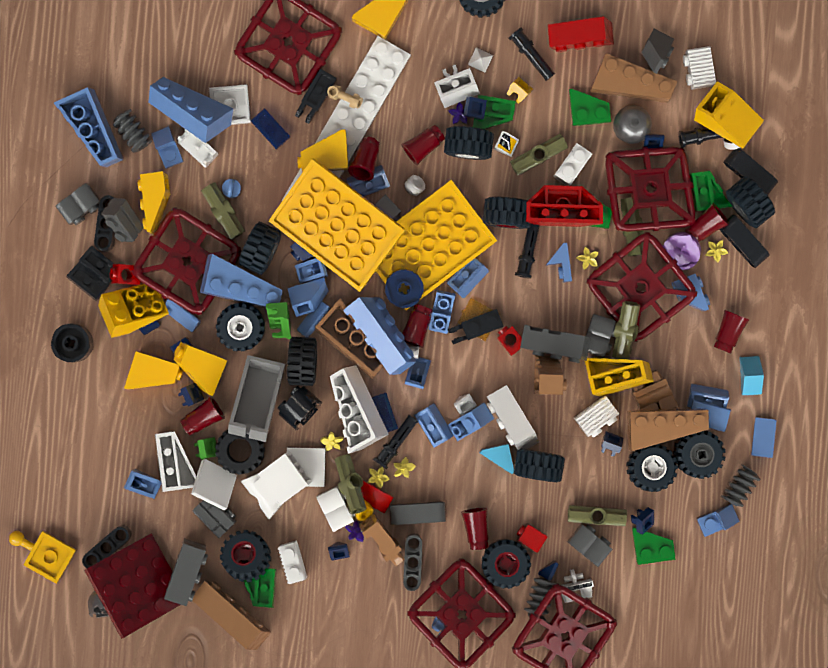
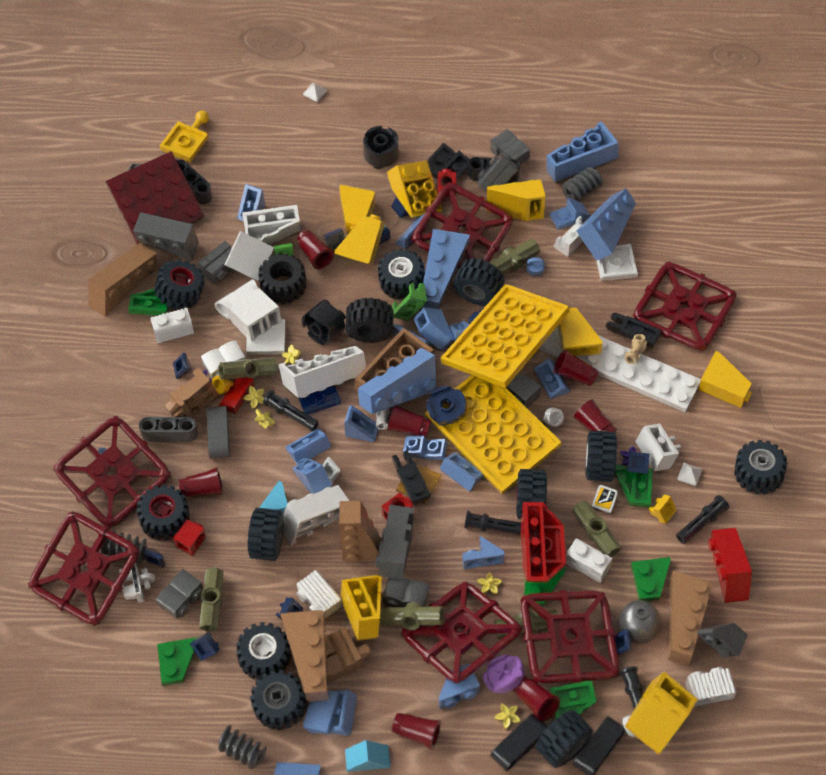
camera: 90 degrees right, 30 degrees down
(256, 398) = (330, 280): light grey piece -> none
(270, 129) = (596, 293): clear blue plate -> none
(718, 520) = (203, 728): medium blue slope -> none

